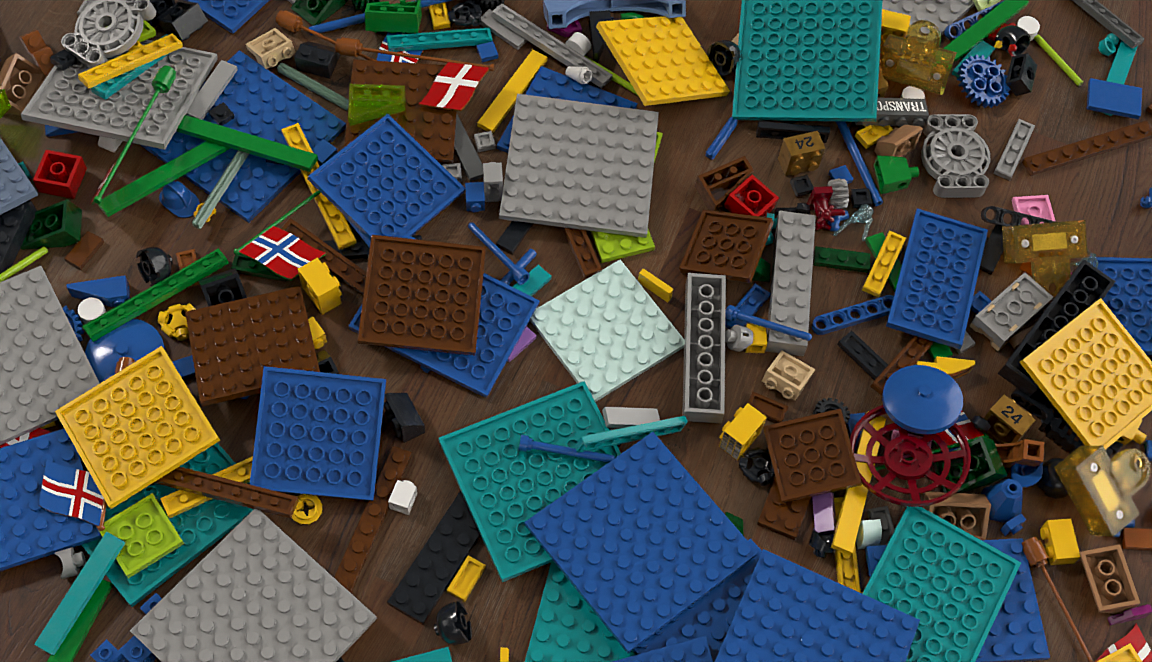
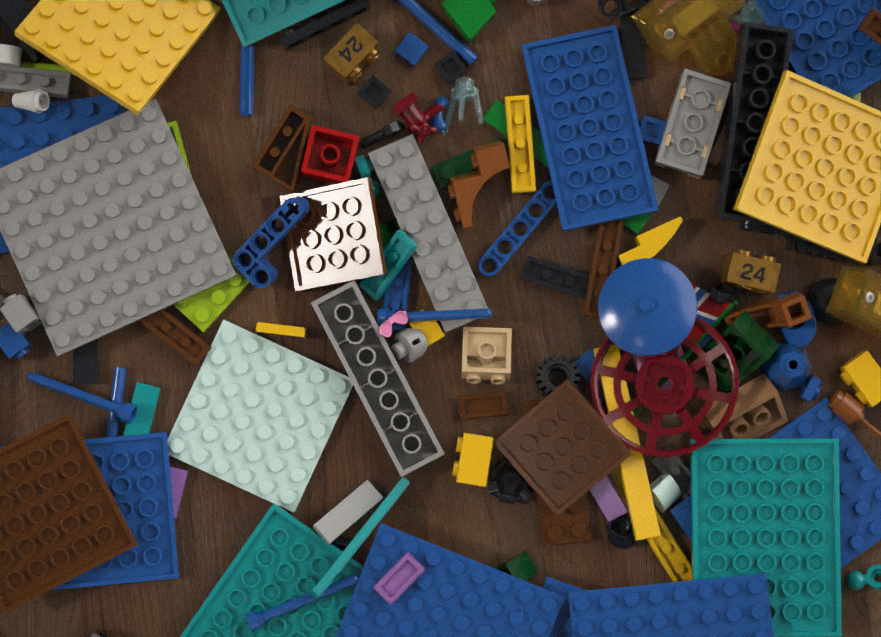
camera: 25 degrees left, 25 degrees up
(645, 470) = (399, 578): none -> medium lavender tile
(686, 227) = (273, 237): none -> blue beam
(742, 313) = (386, 328): none -> bright pink piece
(762, 277) = (396, 255): none -> teal tile
(840, 193) = (422, 83): light grey gear -> none
(858, 257) = (488, 160): none -> dark orange arch

